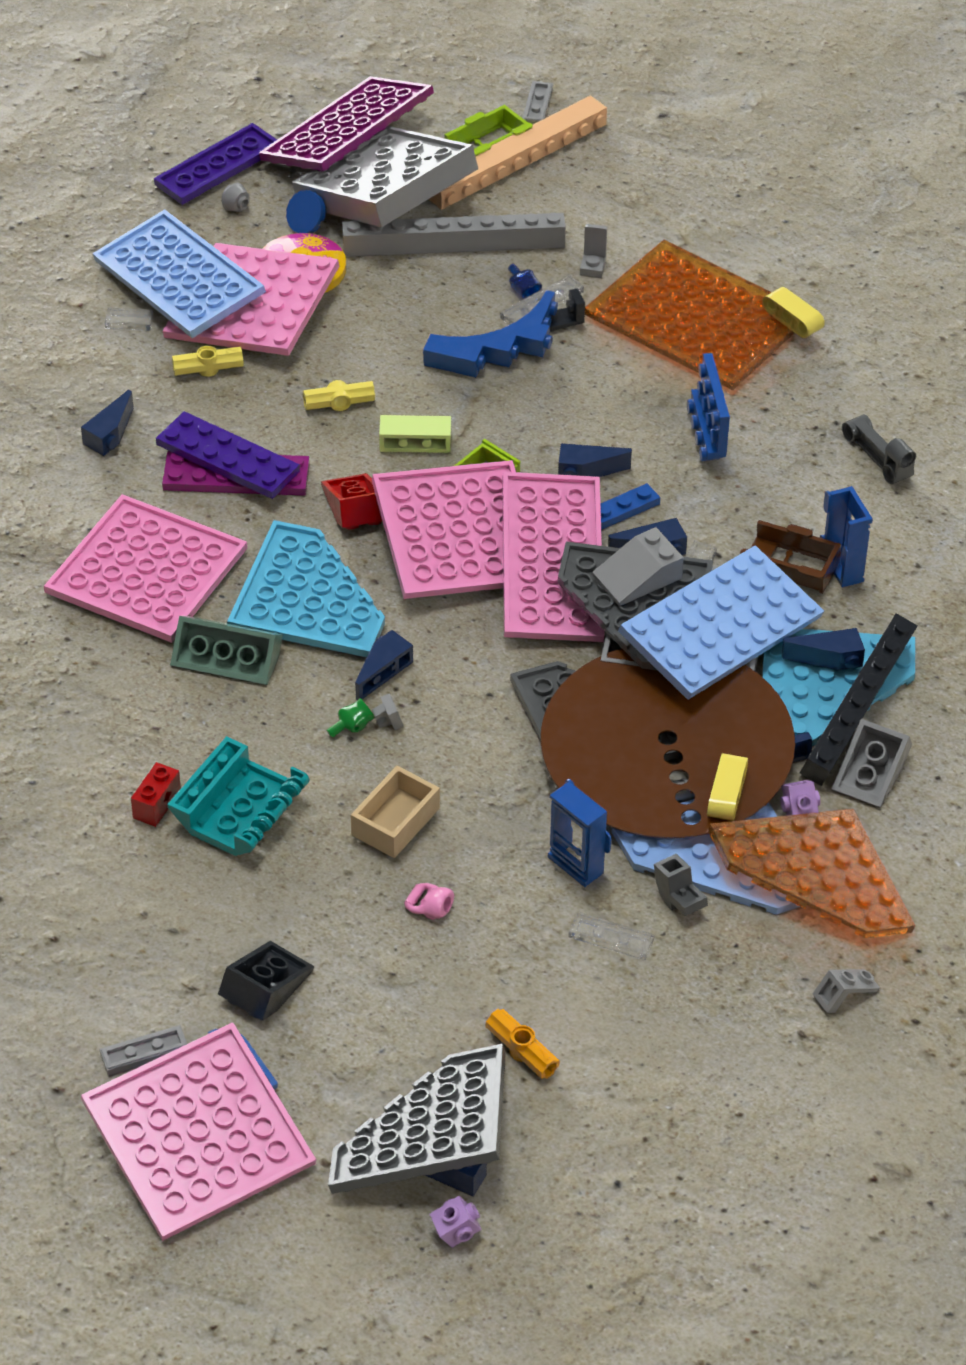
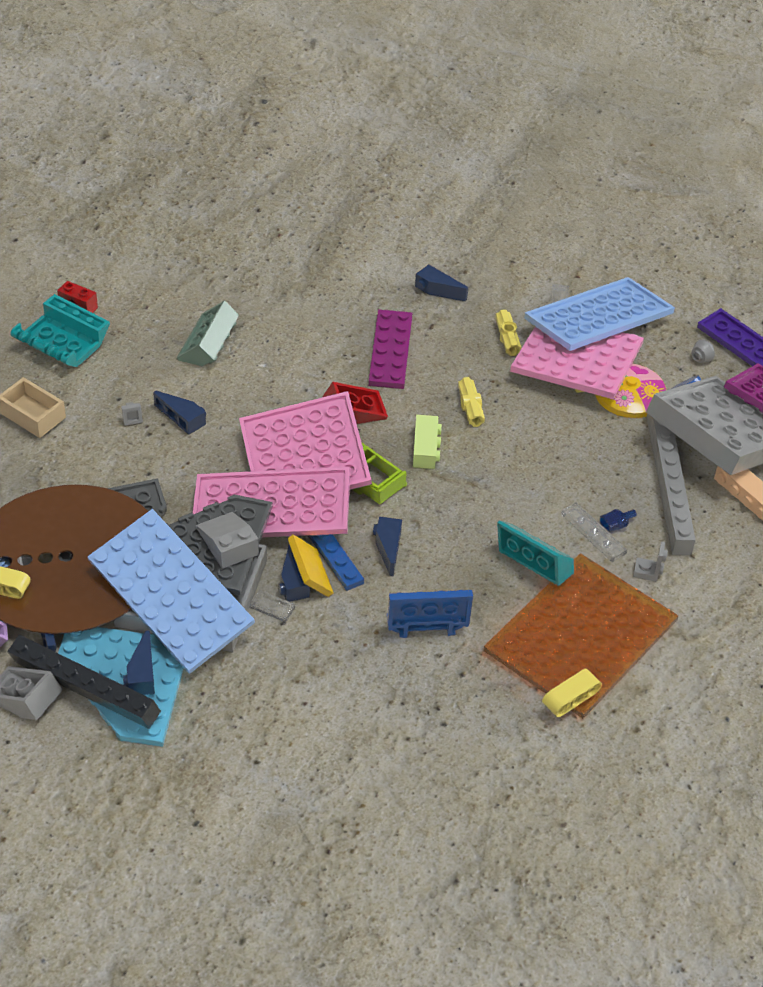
camera: 90 degrees right, 0 degrees up
(145, 567) = (295, 301): bright pink plate -> none
(228, 454) = (399, 337): dark purple plate -> none
(307, 594) = (258, 376): medium azure plate -> none
(352, 717) = (131, 394): green piece -> none
(470, 353) = (538, 509): blue arch -> none
(572, 314) = (573, 541): black bracket -> none
(599, 336) = (534, 553): none -> teal slope
(643, 520) = (310, 565): none -> yellow tile
(801, 541) = (269, 645): reddish brown piece -> none
(850, 533) = (262, 704): blue piece -> none
(893, 458) = (375, 751): dark grey piece -> none

